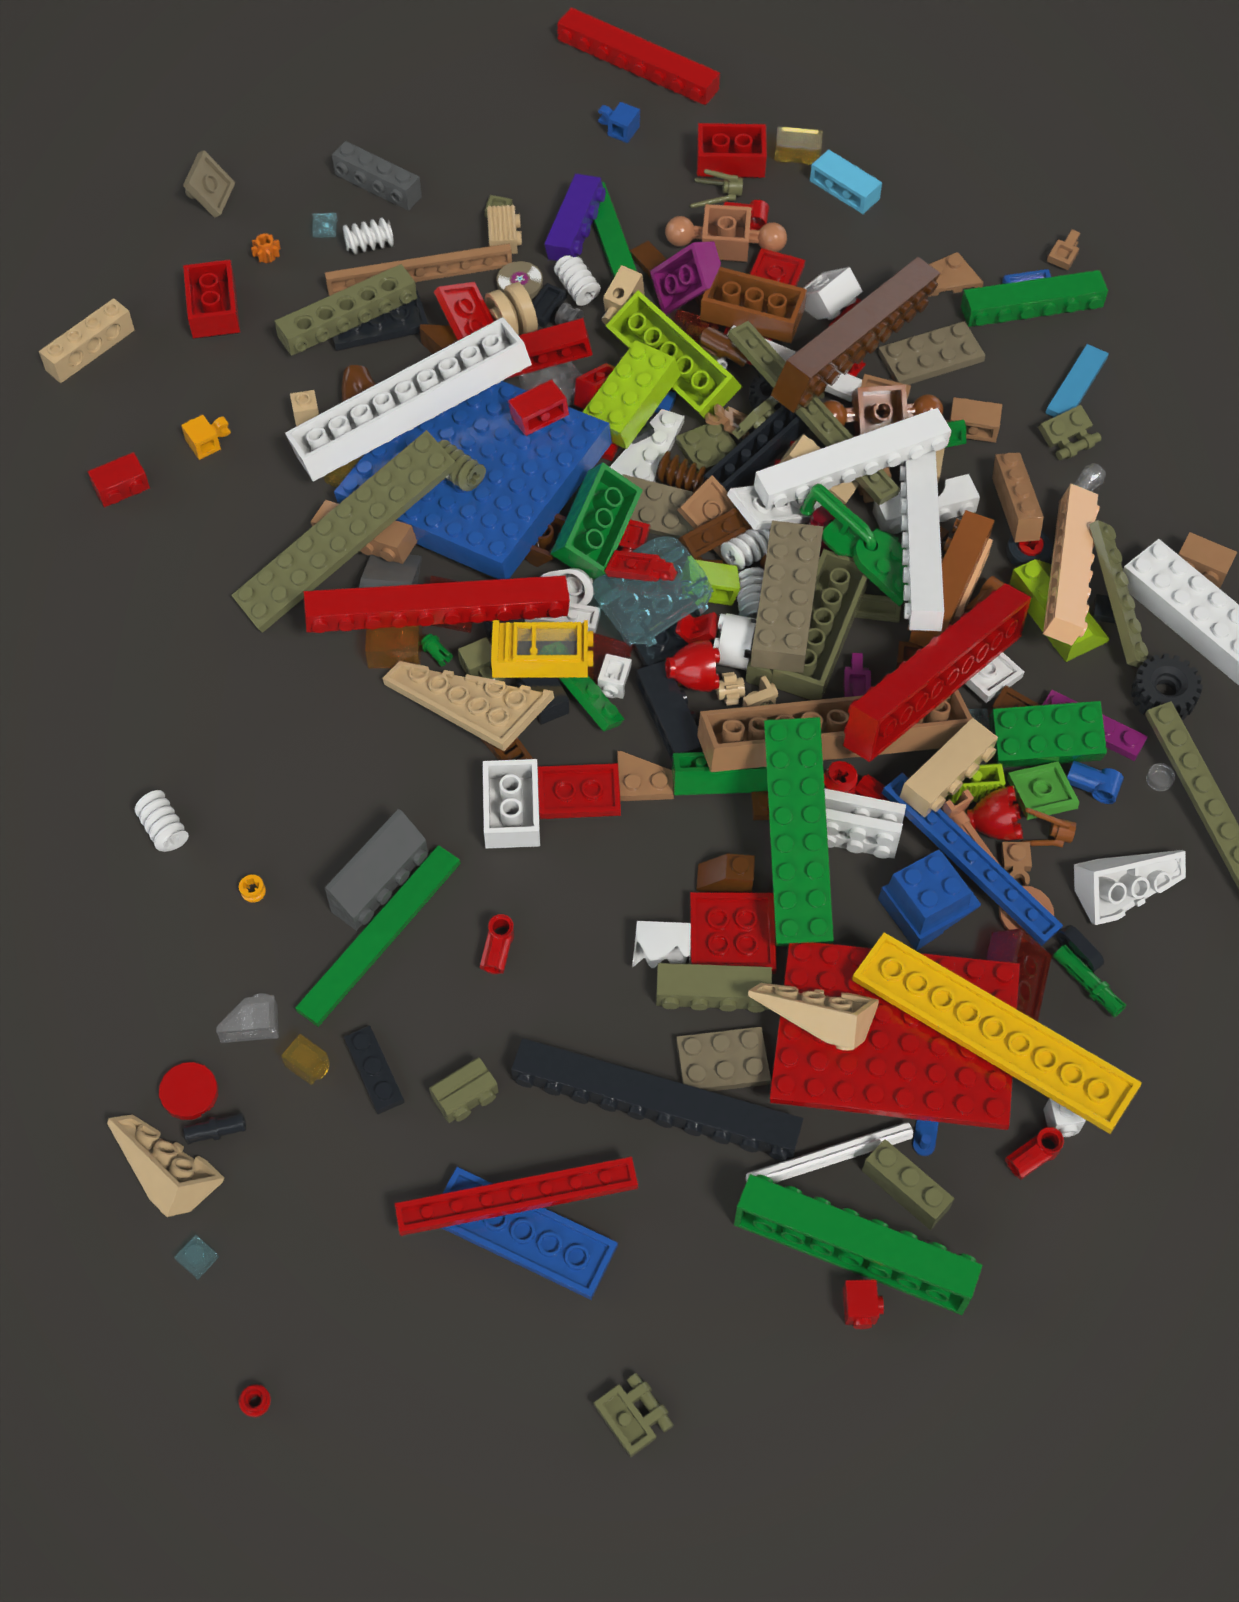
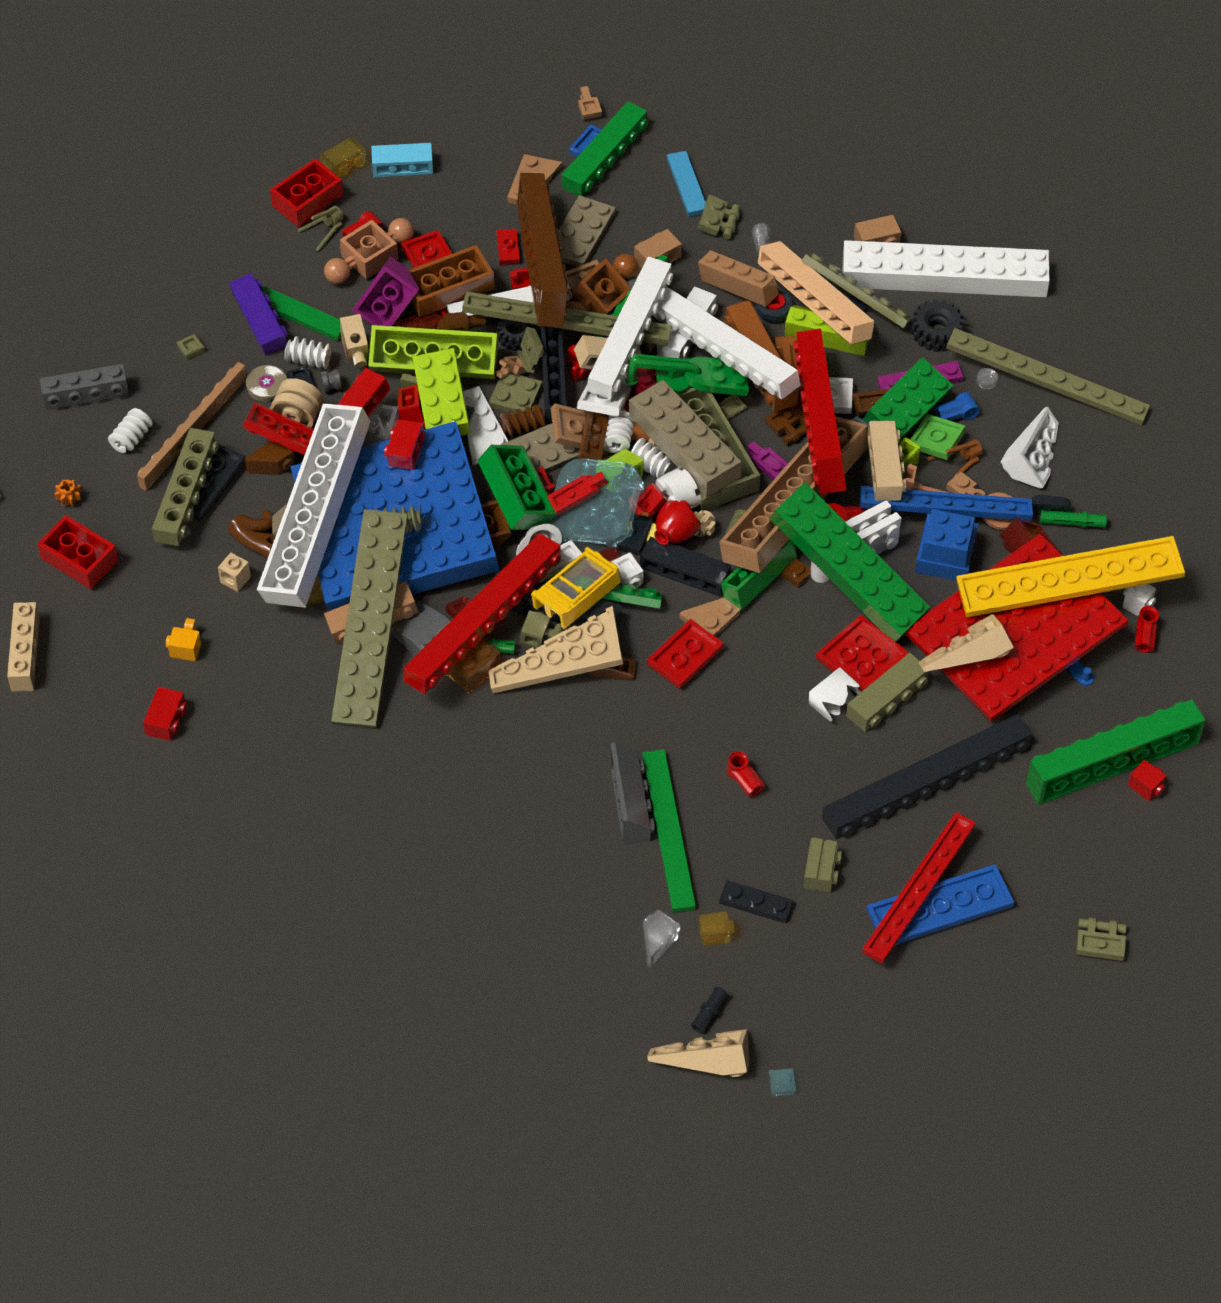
camera: 45 degrees left, 5 degrees down
(160, 821) = (463, 882): white piece -> none
(188, 1090) = (667, 1006): red tile -> none
(246, 1396) = (907, 1112): red plate -> none
(254, 896) = (562, 864): light orange bush -> none
(324, 225) = (88, 447): clear light blue plate -> none
(503, 225) = (215, 357): tan brick -> none
(511, 803) = (659, 691): white brick -> none
(621, 122) = (207, 227): blue brick -> none
(638, 56) = (162, 174): red brick -> none
(647, 257) = (337, 304): reddish brown tile -> none
(724, 1059) = (935, 726): dark tan plate -> none
(726, 874) = (823, 627): reddish brown slope -> none
(766, 692) = (725, 511): tan bracket -> none
(831, 293) = (478, 231): white slope -> none
(835, 1153) = (1047, 723): white axle -> none
(907, 1184) = (1103, 702): olive brick -> none
(997, 815) = (932, 468): red piece -> none

